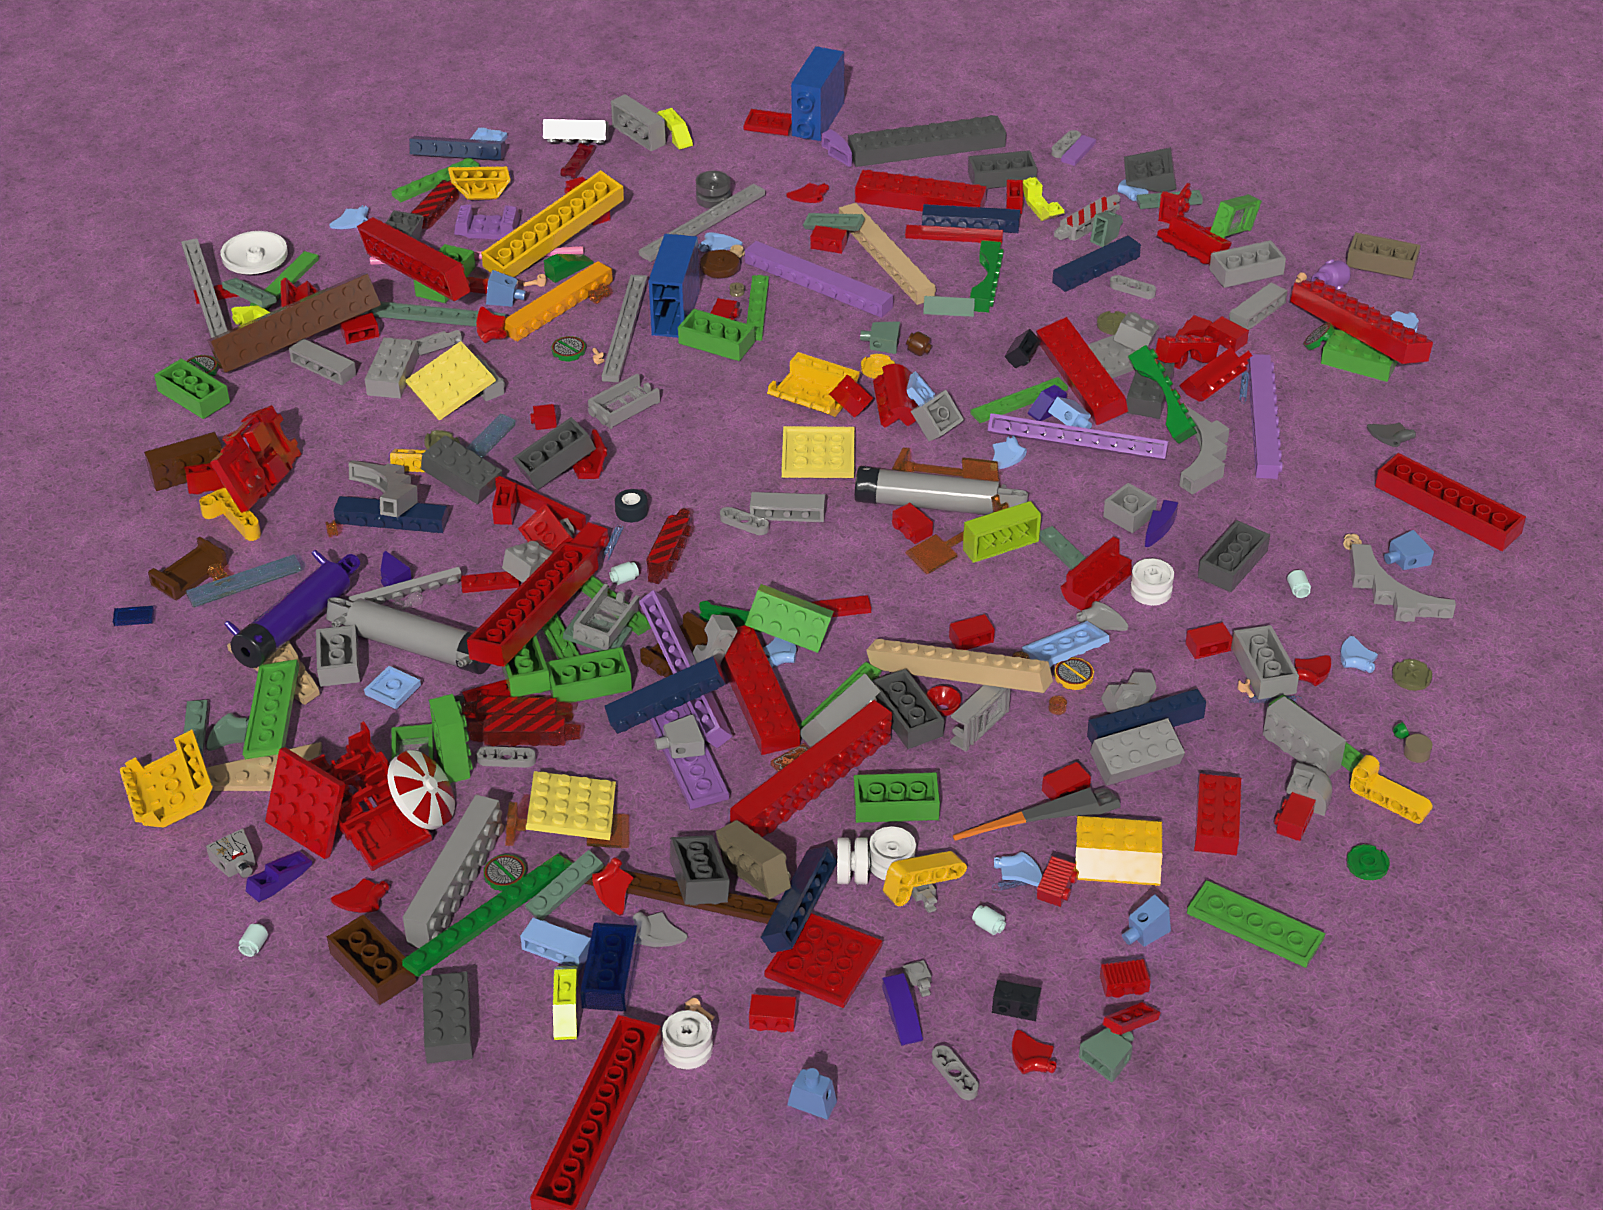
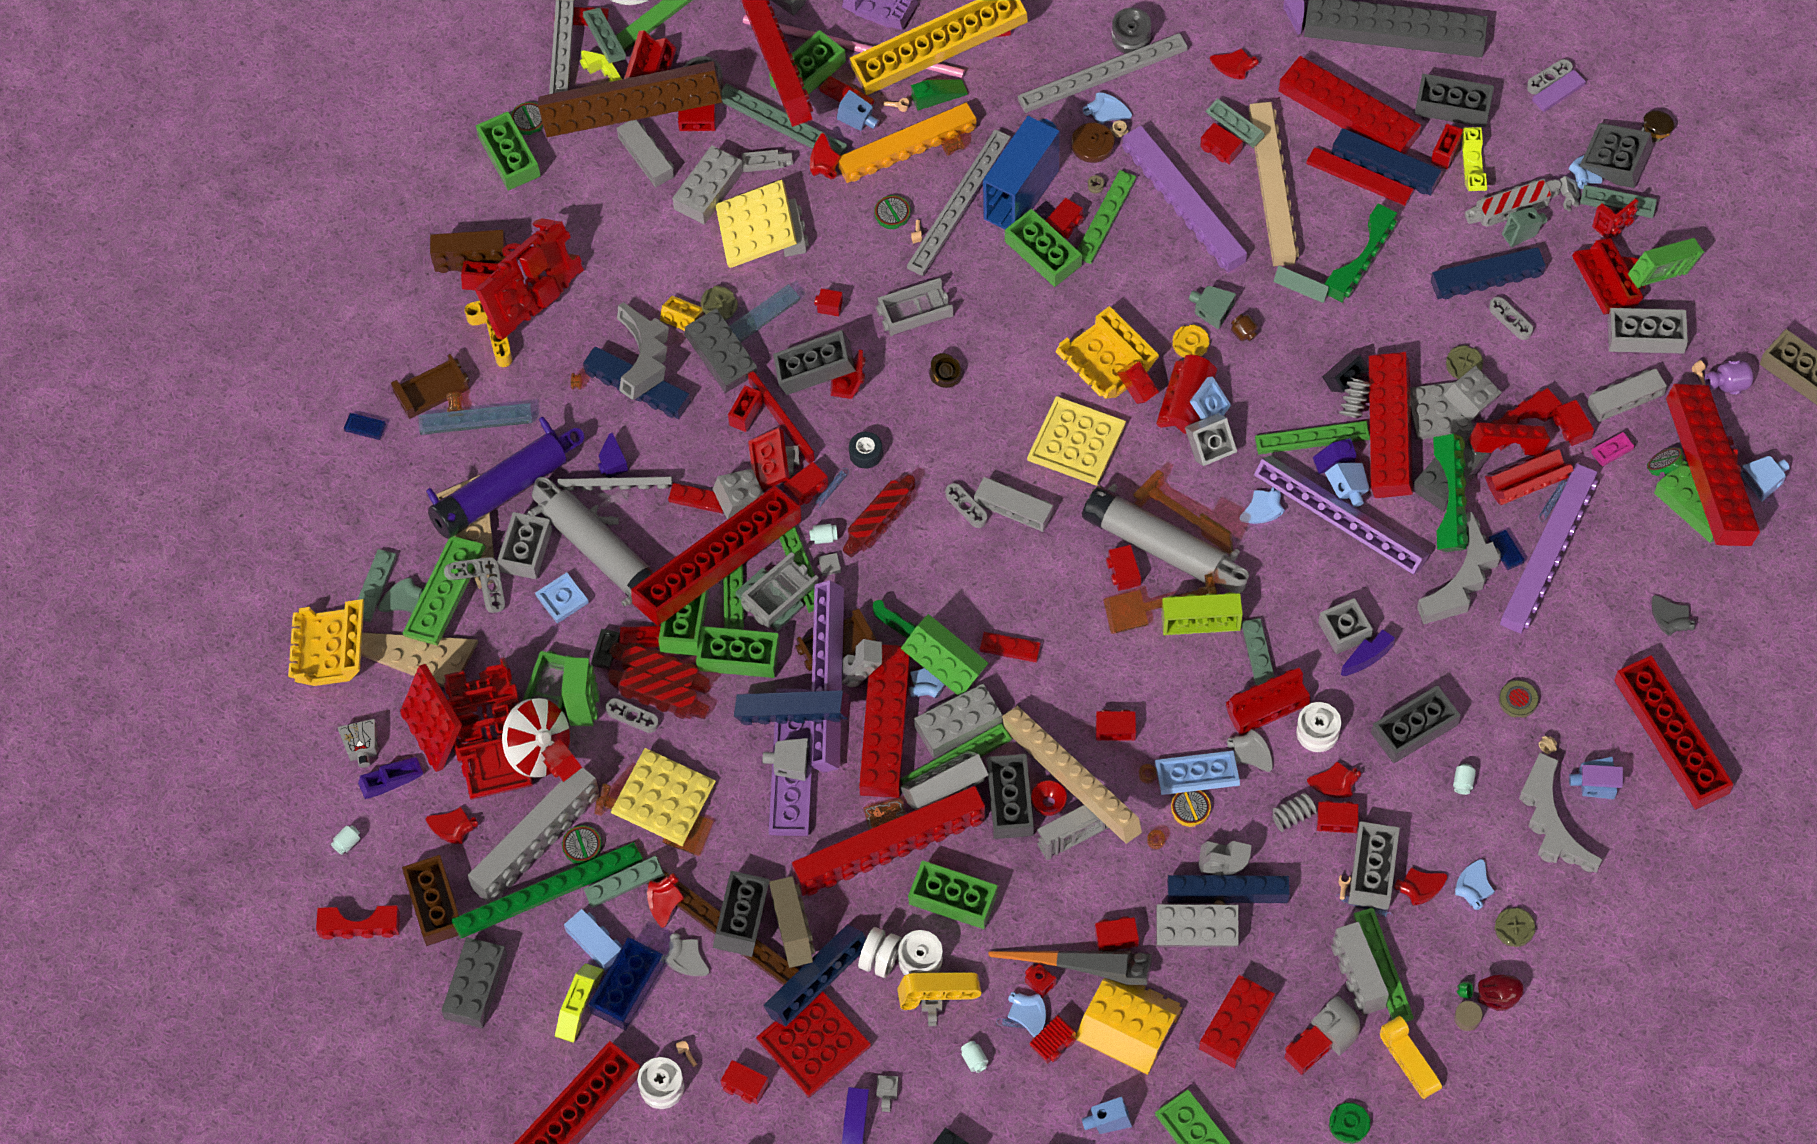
camera: 25 degrees right, 20 degrees up
(273, 1014) = (382, 922): none -> red arch
(309, 680) = (482, 572): none -> light grey beam
(457, 796) = (560, 760): none -> red brick
(640, 590) = (829, 564): none -> light grey tile
(674, 435) = (945, 370): none -> dark brown piece
(824, 669) = (958, 721): none -> light grey brick
(1015, 840) = (1040, 986): none -> red brick
(1040, 358) = (1355, 397): none -> light grey piece
(1126, 201) = (1570, 190): none -> light grey plate
(1169, 647) = (1292, 811): none -> light grey piece
(1176, 148) = (1658, 124): none -> dark brown piece
(1189, 618) = (1335, 782): none -> red arm
(1236, 430) = (1508, 550): none -> clear blue tile
(1270, 342) = (1612, 449): none -> dark pink plate
(1305, 519) = (1518, 699): none -> tile
(1415, 542) = (1602, 776): none -> medium lavender tile
(1436, 714) = (1500, 990): none -> dark red helmet

